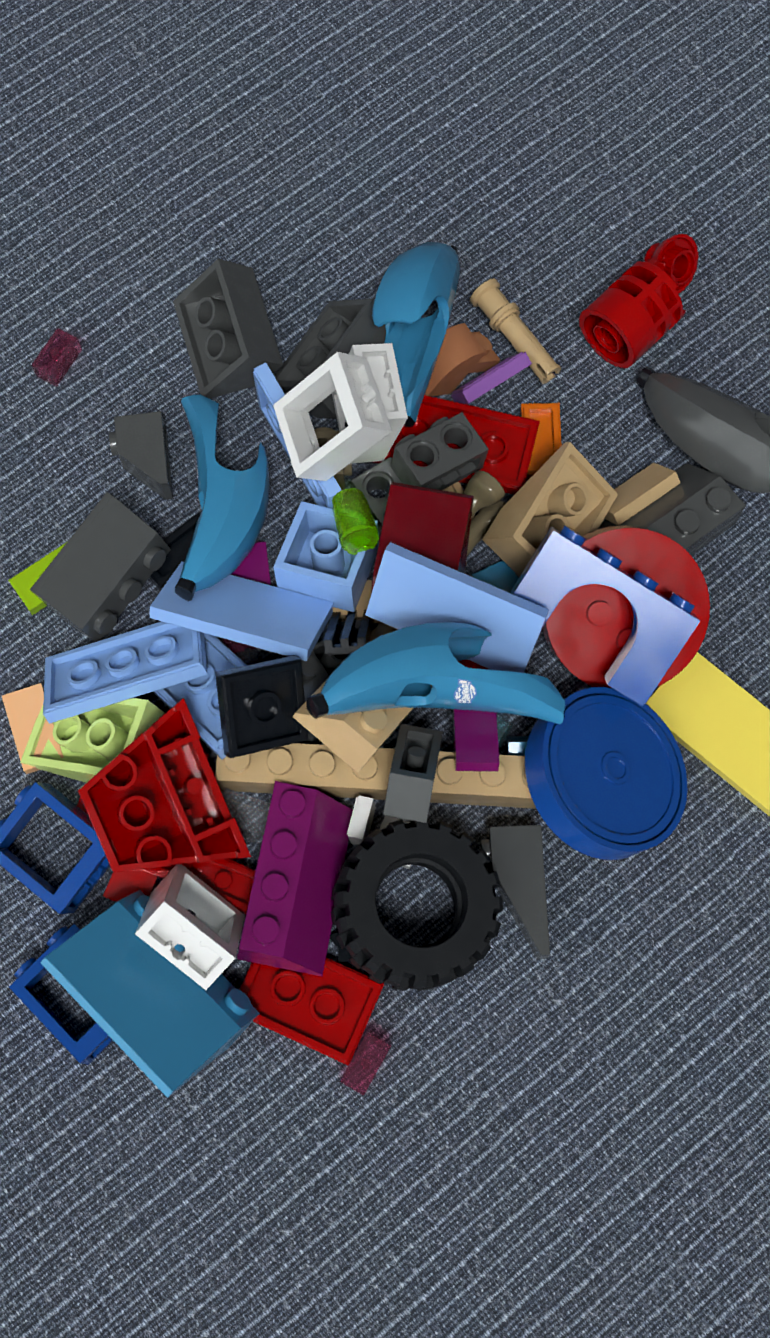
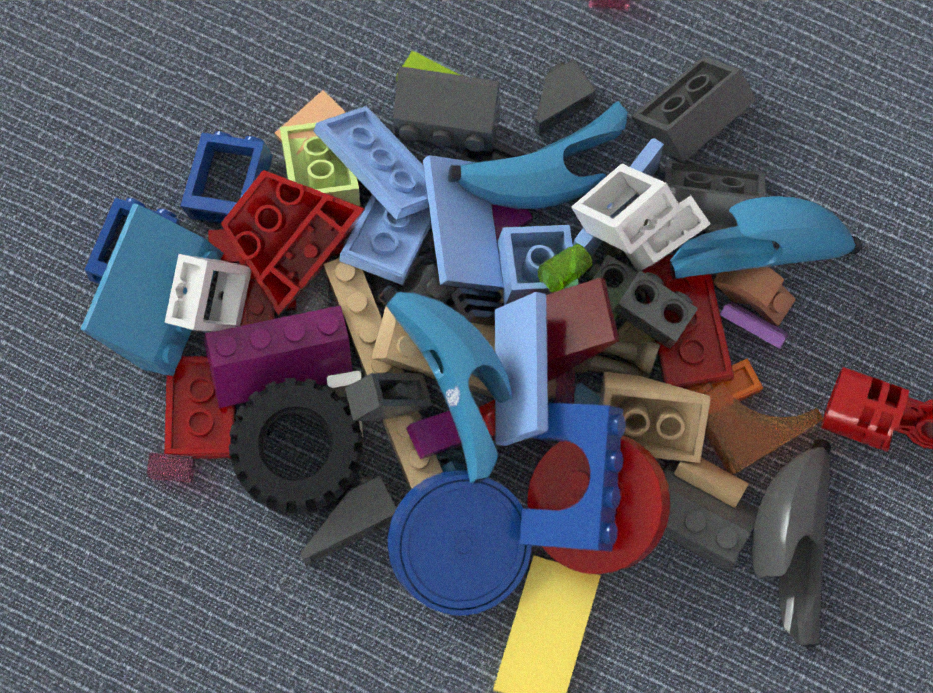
camera: 65 degrees right, 0 degrees up
(260, 706) = (385, 261): black tile -> none
(505, 319) = (815, 315): tan pin -> none
(611, 434) = (745, 435): none -> clear orange arch

